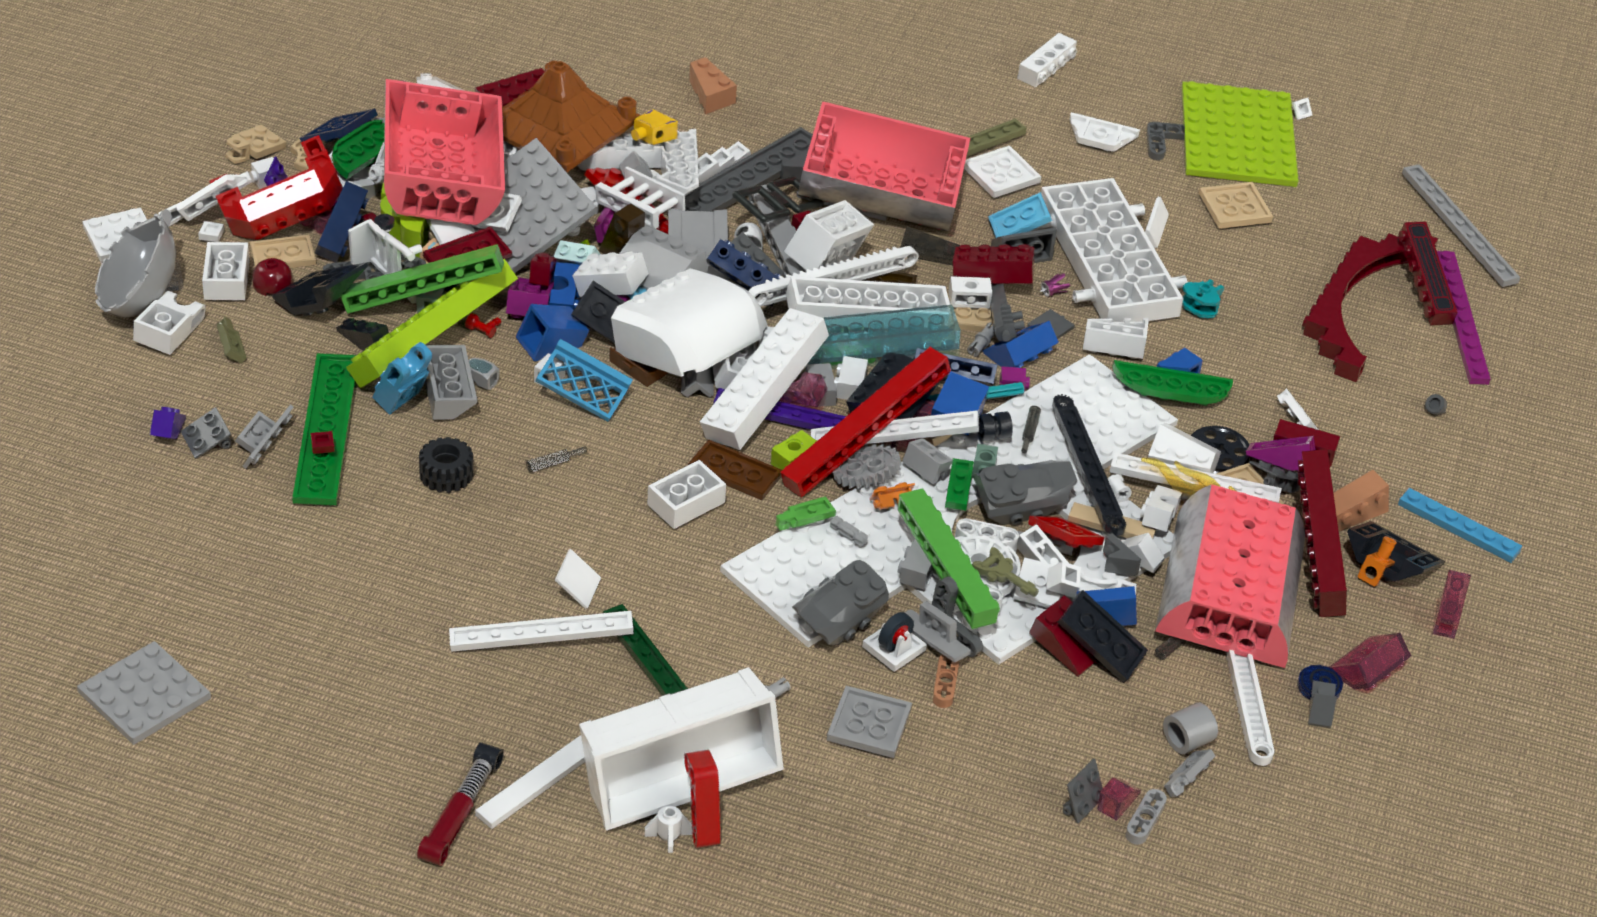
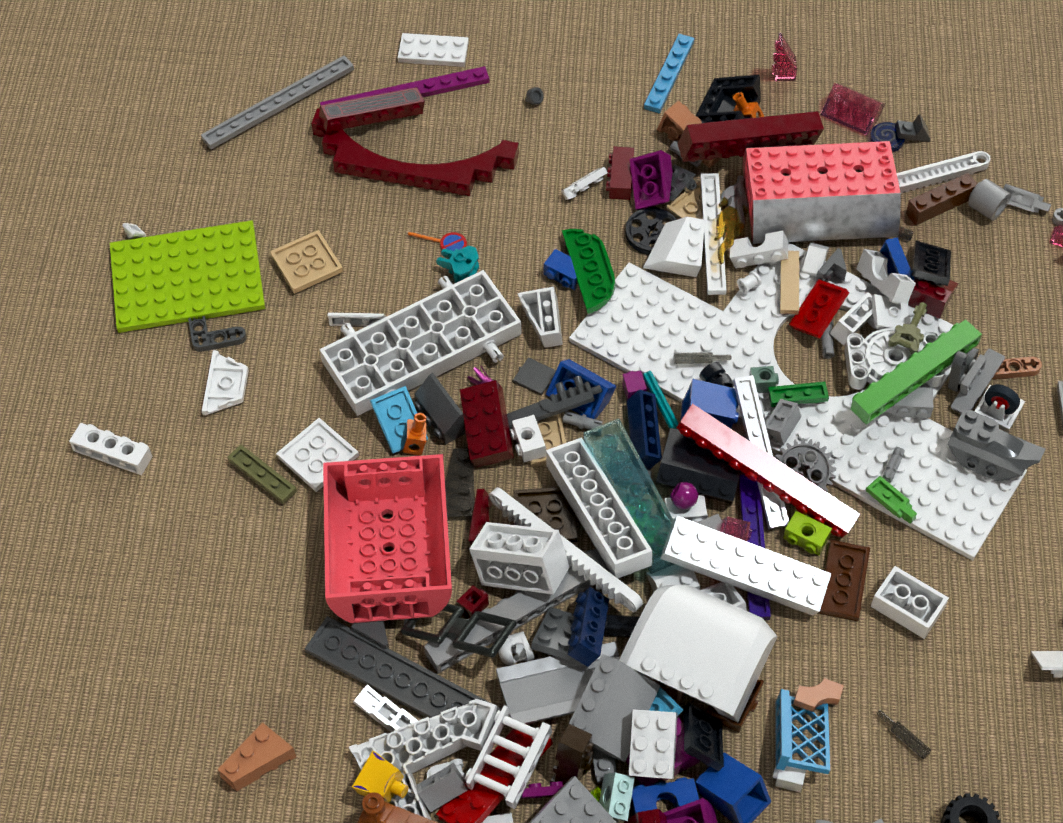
camera: 100 degrees left, 15 degrees up
(618, 403) = (824, 693): none -> tile
(859, 360) = (684, 495): none -> magenta piece
(875, 242) = (480, 513): none -> dark red plate
(884, 496) = (833, 438): orange hinge -> none
(1001, 222) = (416, 434): none -> orange bracket
(1021, 491) = (783, 345): dark grey slope -> none
(1089, 465) = (730, 305): black plate -> none
(1204, 687) = (940, 199): none -> reddish brown brick
(1238, 307) = (449, 241): none -> piece
(1524, 349) = (433, 49): none -> white plate

